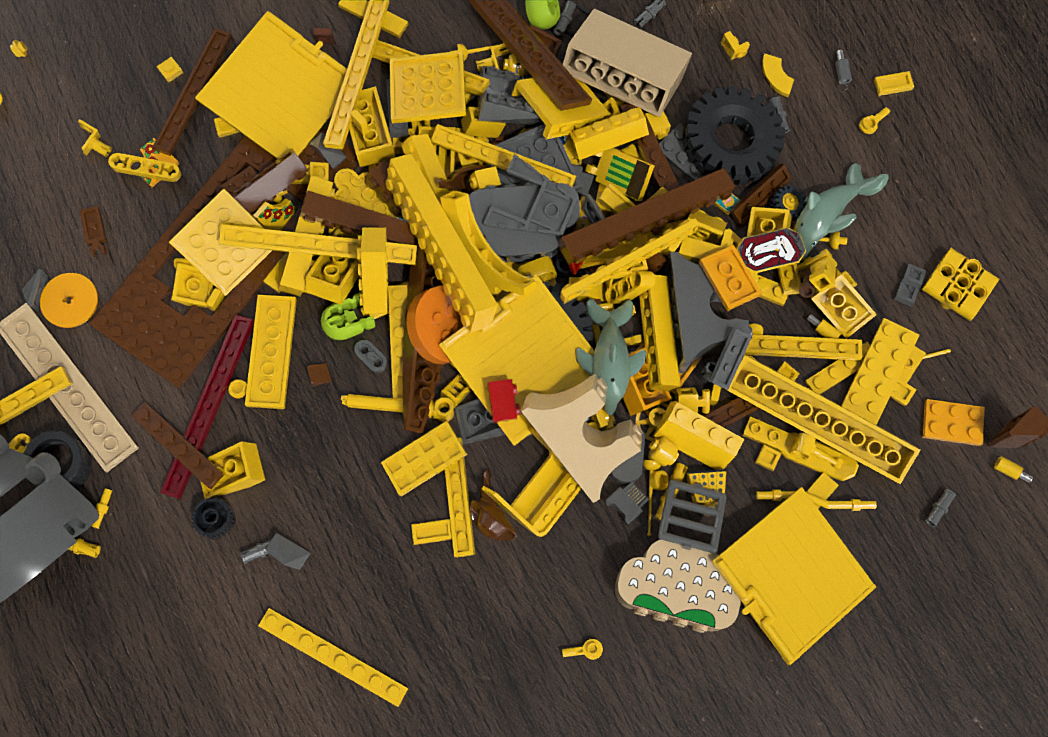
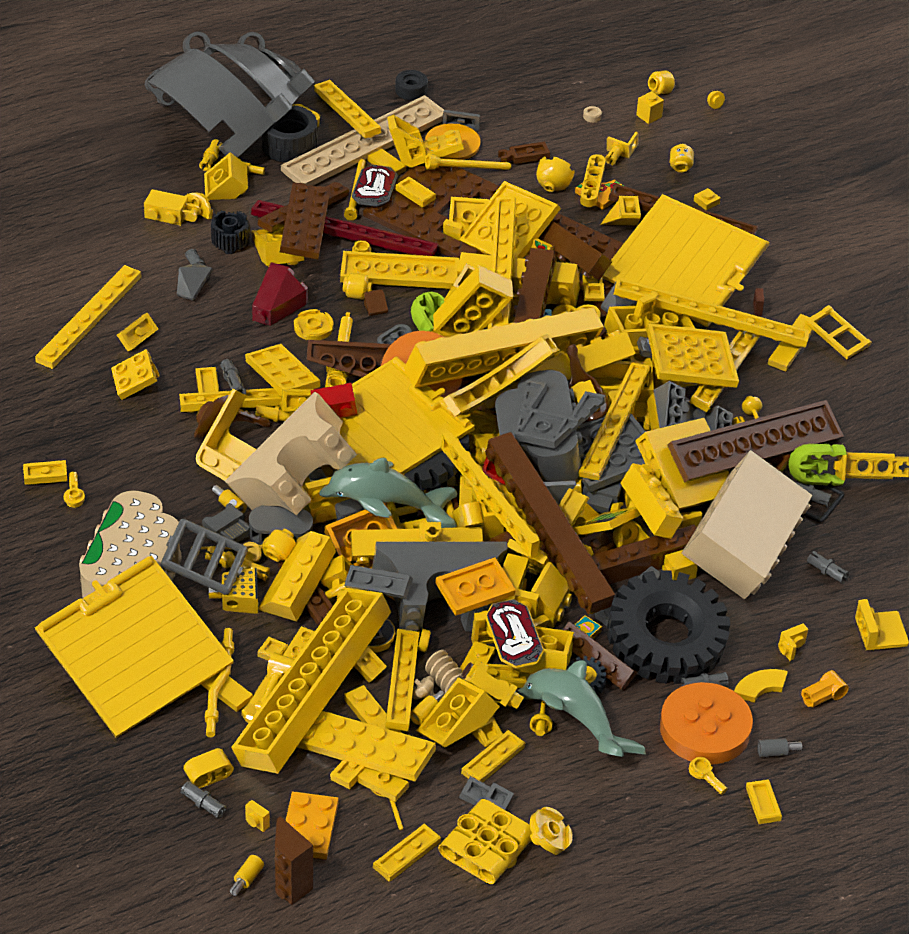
camera: 90 degrees right, 30 degrees down
(30, 108) = (650, 107): none -> yellow brick
(30, 165) = (592, 114): none -> tan tile
(91, 322) = (410, 144): none -> yellow bracket
(100, 365) = (383, 158): none -> yellow tile
(111, 85) = (681, 158): none -> yellow head
(117, 315) = (434, 162): none -> yellow piece
(124, 527) = (226, 179): none -> yellow slope
(137, 202) = (554, 174): none -> yellow cylinder
(144, 375) = (374, 185): none -> shield
(158, 334) = (415, 192): none -> yellow tile
(162, 555) = (203, 202): none -> yellow plate
(170, 584) = (169, 208): none -> yellow brick
(180, 399) = (351, 212): none -> yellow bar
(195, 140) = (624, 212): none -> yellow slope
(215, 439) = (305, 220): none -> reddish brown plate
(297, 391) = (356, 285): none -> yellow head
(316, 467) = (278, 295): none -> dark red slope
(347, 433) = (313, 325): none -> yellow tile
(363, 604) = (137, 332): none -> yellow plate
(428, 602) = (134, 374): none -> yellow plate
(437, 504) = (231, 375): none -> dark grey pin
(473, 437) = (294, 398): none -> yellow panel
(477, 463) = (274, 414): none -> yellow pin
(562, 680) = (45, 472): none -> yellow plate
(590, 506) = (229, 497): none -> yellow piece
(657, 317) = (430, 531): none -> yellow bracket
(781, 26) = (828, 687): none -> light orange piece
(790, 311) = (443, 670): none -> tan piece
(807, 329) = (423, 688): none -> tan piece
(823, 117) = (706, 722): none -> orange brick
(869, 279) = (493, 757): none -> yellow tile
(908, 505) = (208, 768): none -> yellow beam
(949, 235) = (550, 830): none -> yellow plate
(956, 463) = (257, 816): none -> yellow plate
(971, 346) = (407, 852): none -> yellow tile

